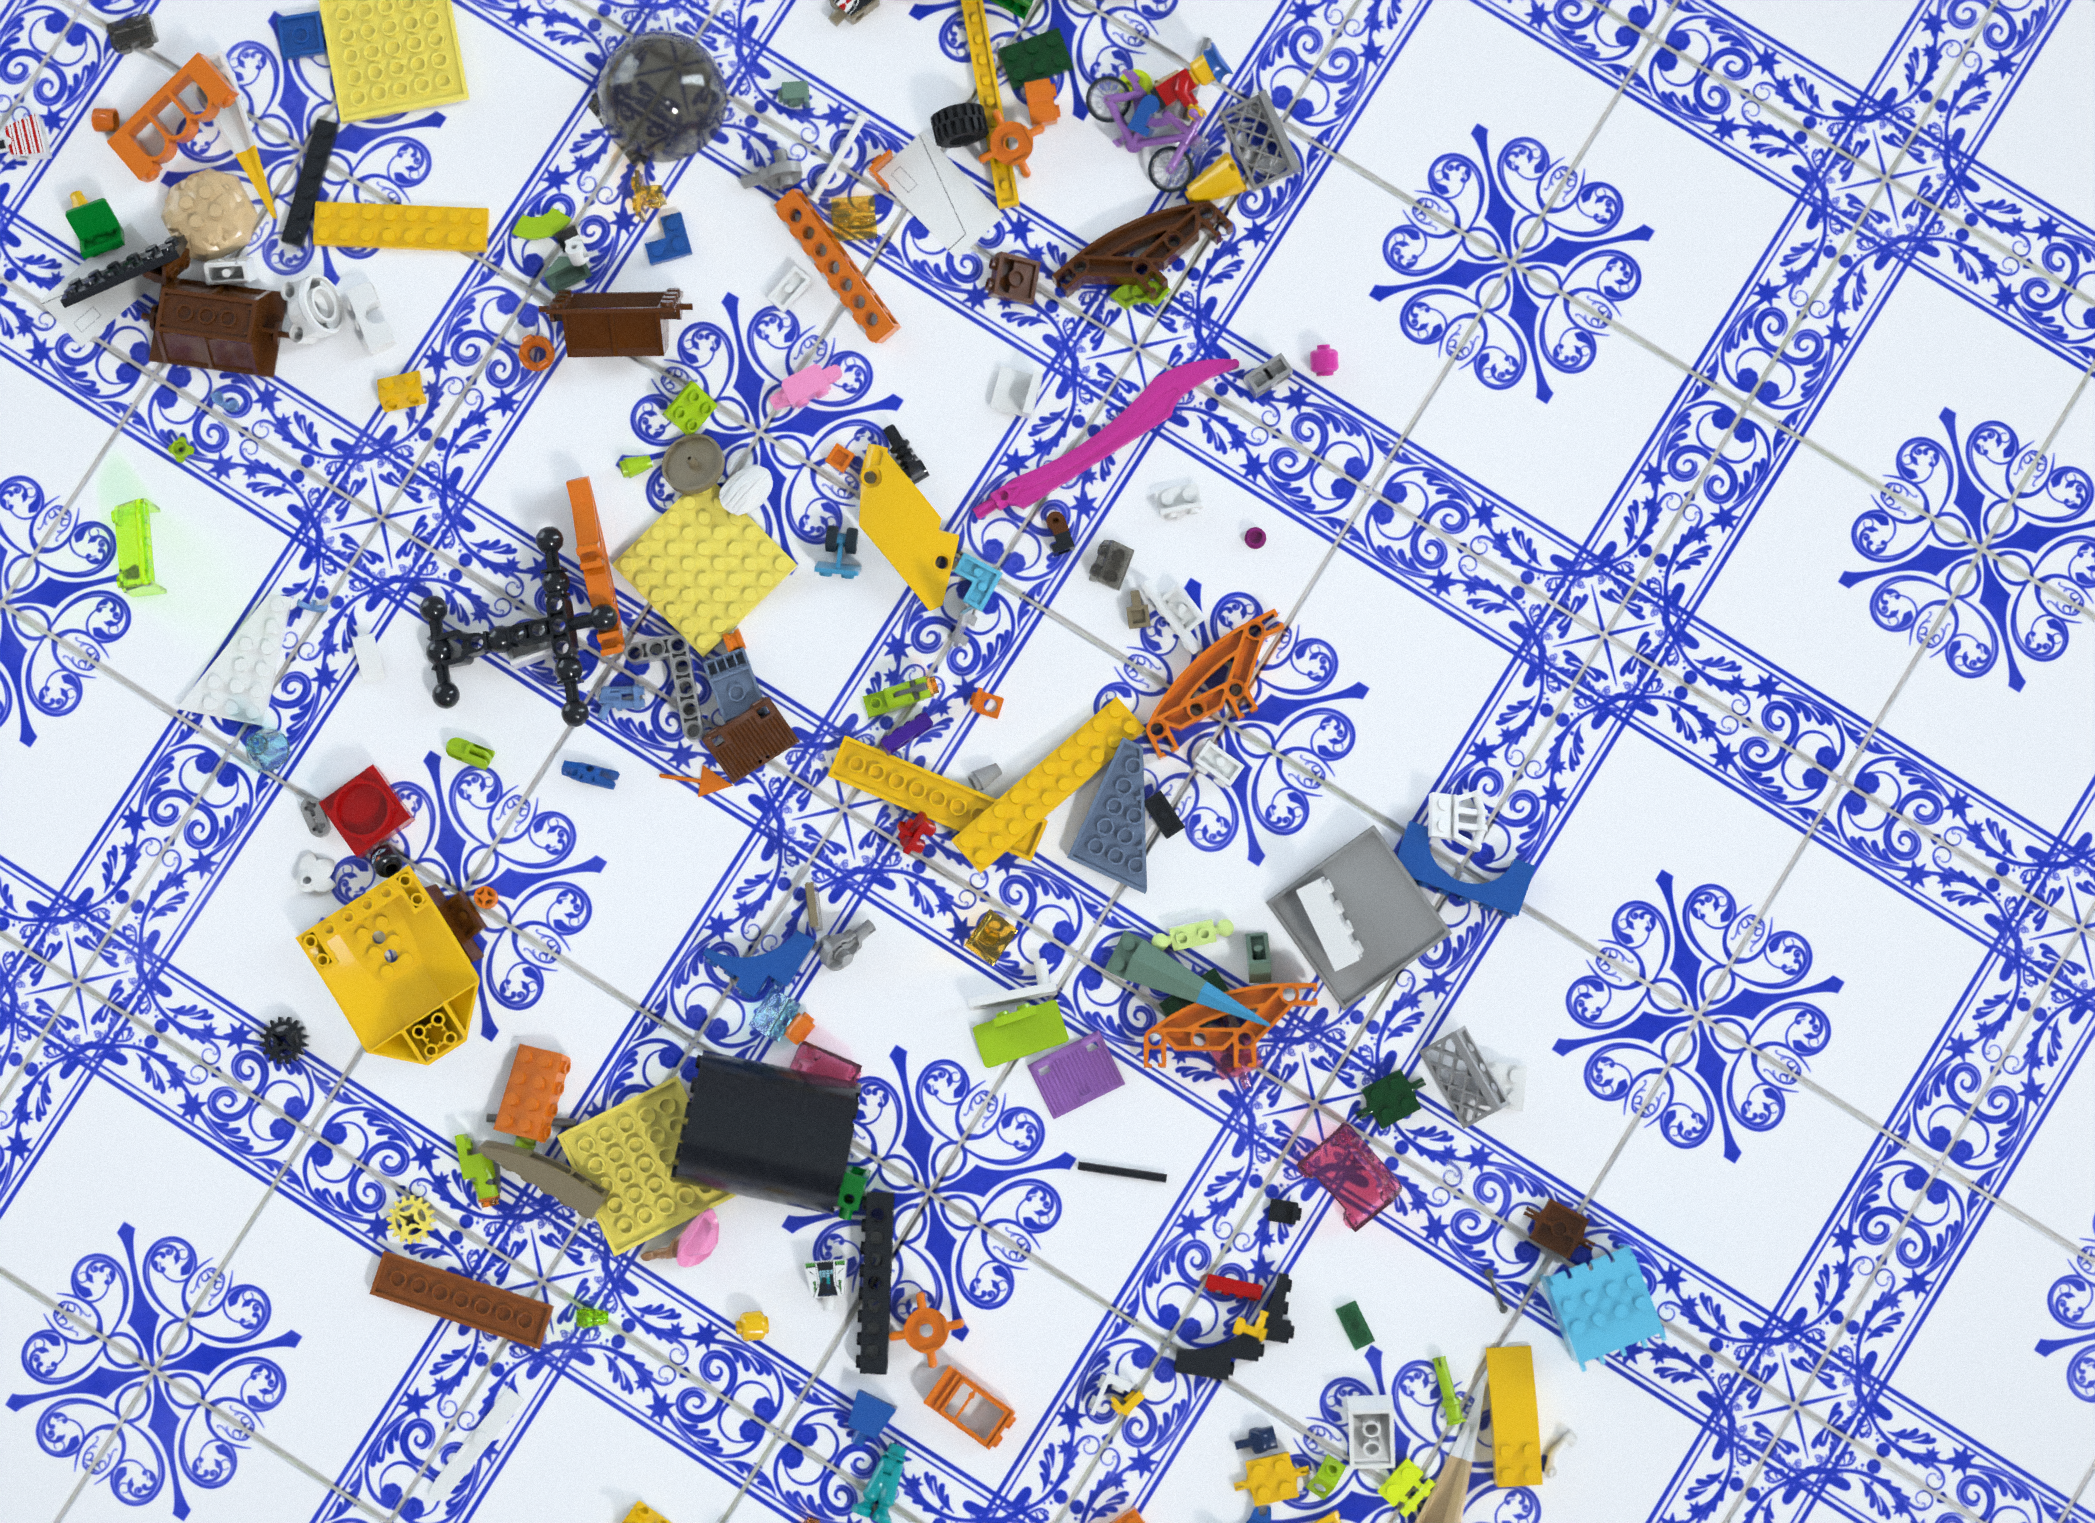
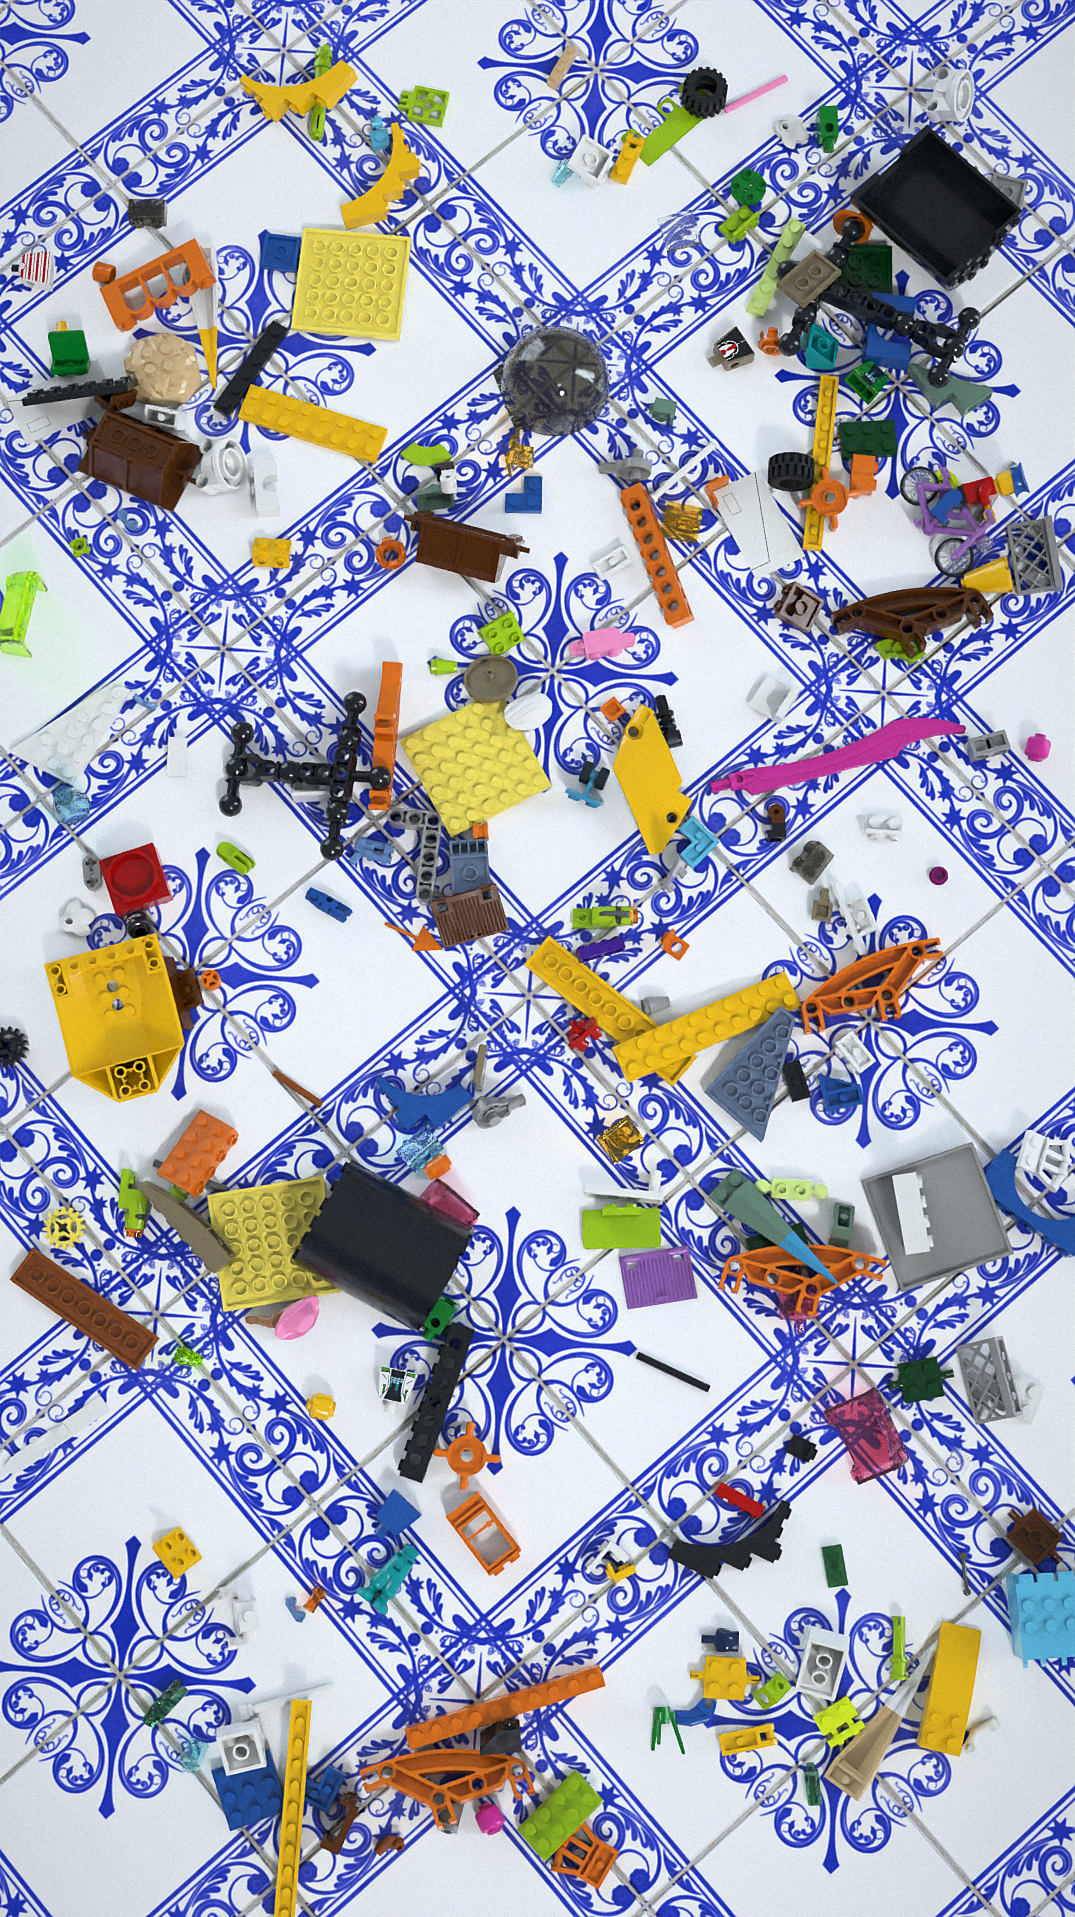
camera: 15 degrees right, 5 degrees down
(623, 989) = (297, 1088): none -> dark orange bar
(1215, 813) = (839, 1093): none -> blue wing
(1256, 1331) = (751, 1543): yellow piece -> none

